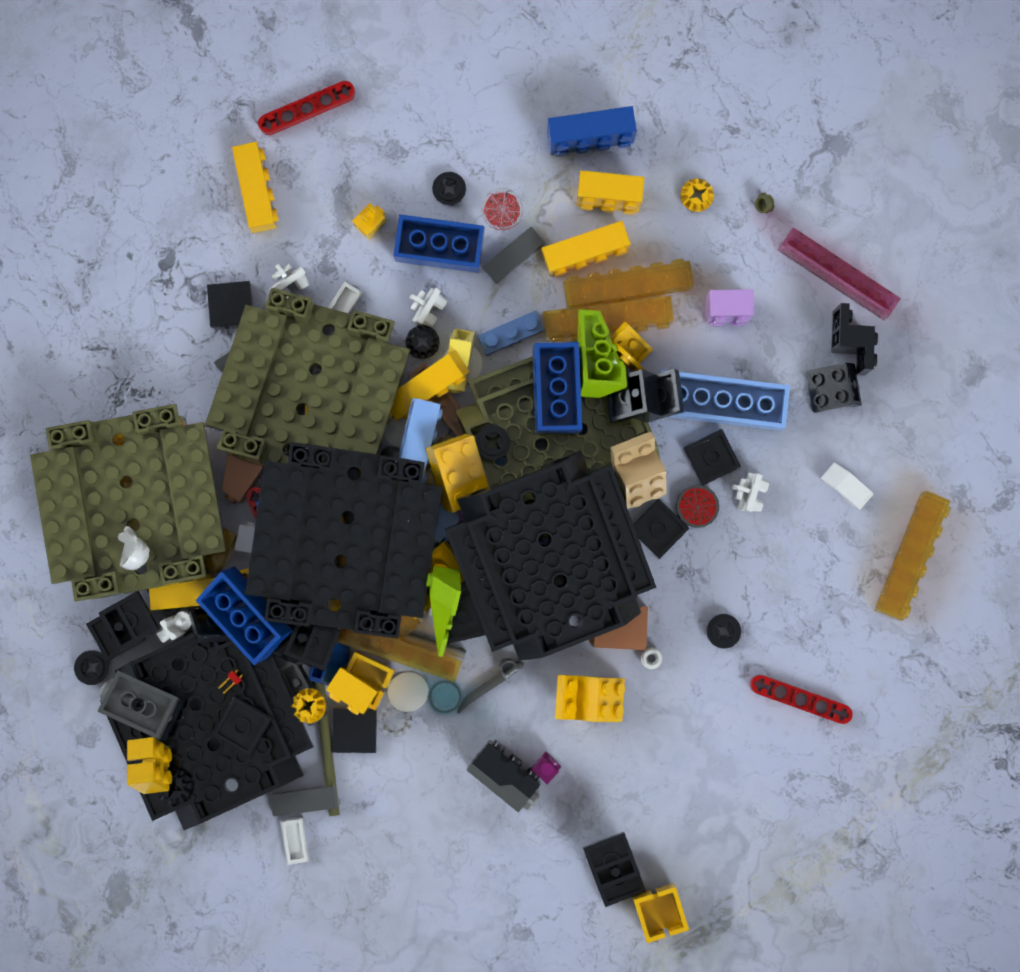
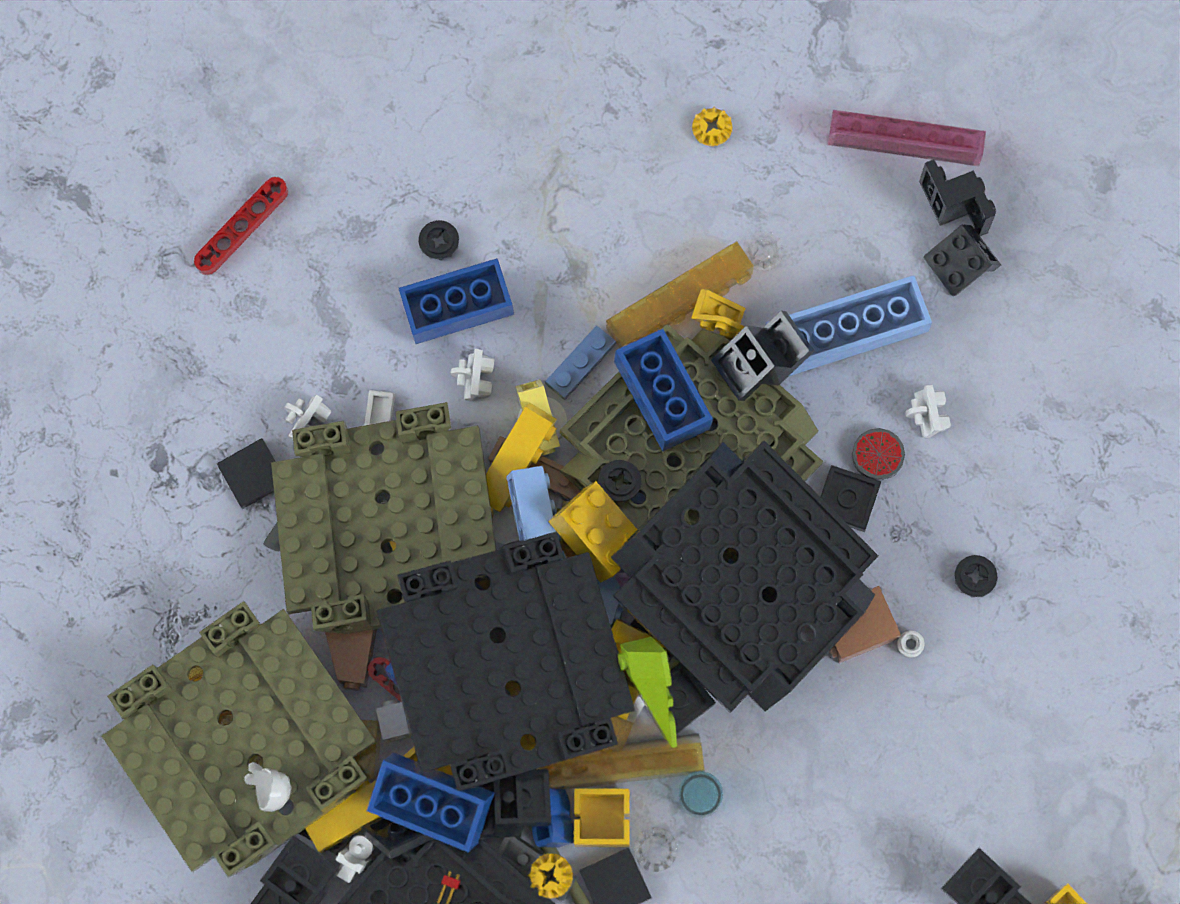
camera: 20 degrees left, 10 degrees down
(254, 187) = (222, 334): yellow brick -> none
(352, 691) = (593, 832): yellow brick -> none
(370, 220) = (367, 312): yellow brick -> none
(407, 691) = (655, 810): white sticker -> none
(422, 352) = (492, 426): black gear -> none
(495, 681) = (746, 756): dark grey sword -> none
(502, 209) = (507, 236): clear tile -> none
(505, 776) = (814, 850): black piece -> none
(513, 255) = (543, 278): dark grey tile -> none
(546, 767) = (854, 822): magenta brick -> none
(586, 248) = (619, 235): yellow brick -> none
(590, 698) = (865, 718): yellow bracket -> none
(591, 131) = (566, 109): blue brick -> none
(599, 363) = (697, 343): lime wedge -> none
(610, 192) = (617, 163): yellow brick -> none
(628, 285) = (685, 251): clear yellow brick -> none
(639, 470) = (797, 435): tan bracket -> none
(712, 457) = (867, 394): black tile -> none
(729, 307) = (806, 224): lavender brick -> none
(761, 205) = (784, 104): olive plate -> none
(809, 706) = (1111, 606): red beam -> none
(847, 485) = (1034, 356): white slope -> none
(912, 556) = (1139, 398): clear yellow brick -> none

